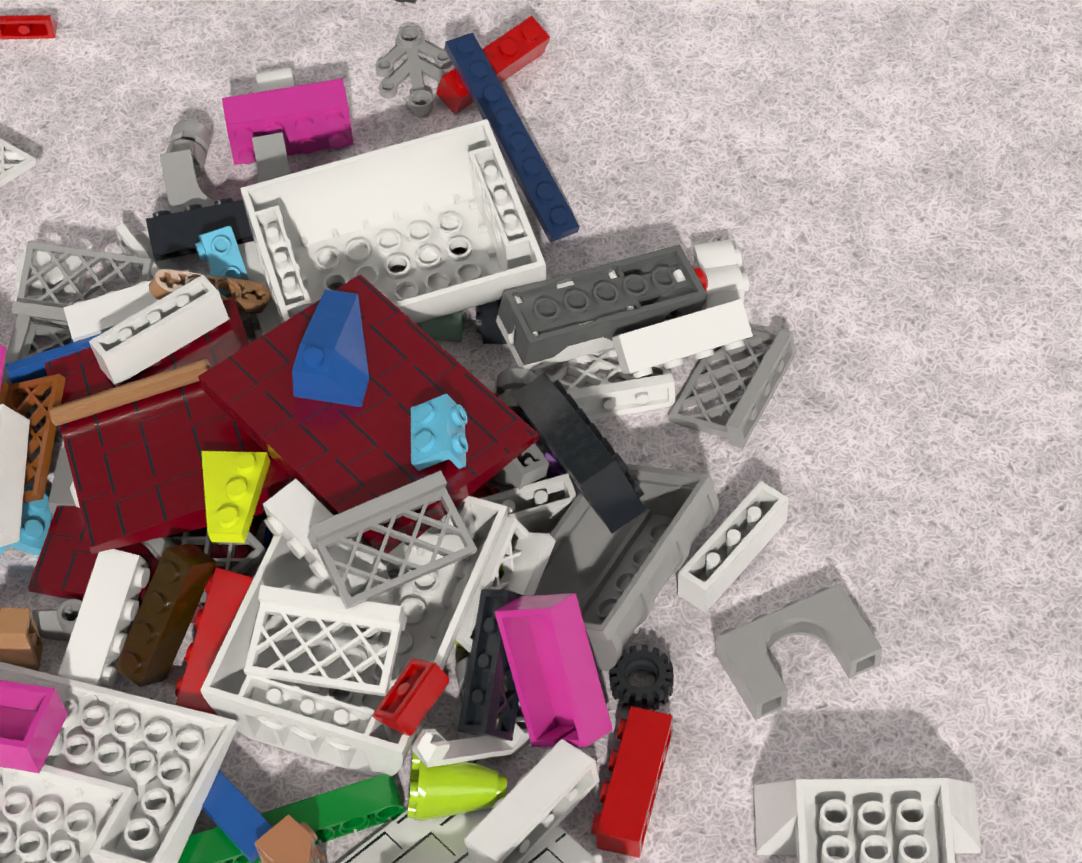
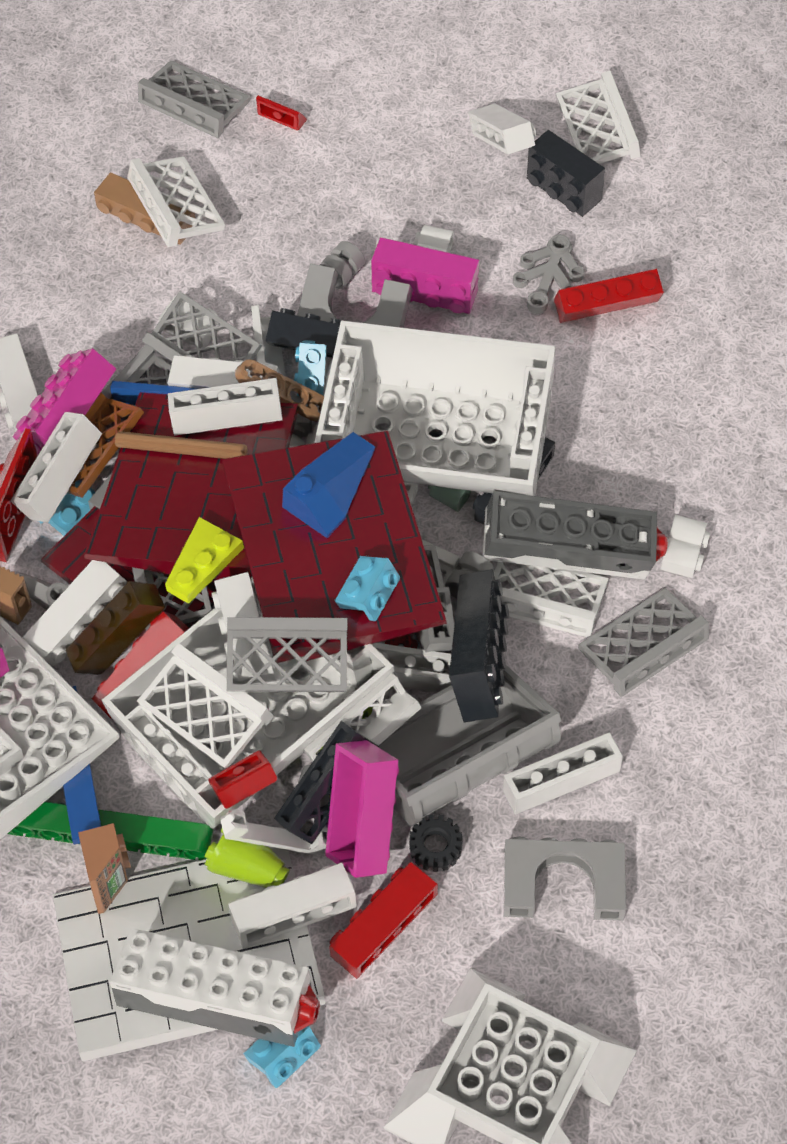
camera: 25 degrees right, 5 degrees up
(512, 137) = (585, 363): dark blue plate -> none
(683, 336) = (619, 587): white brick -> none

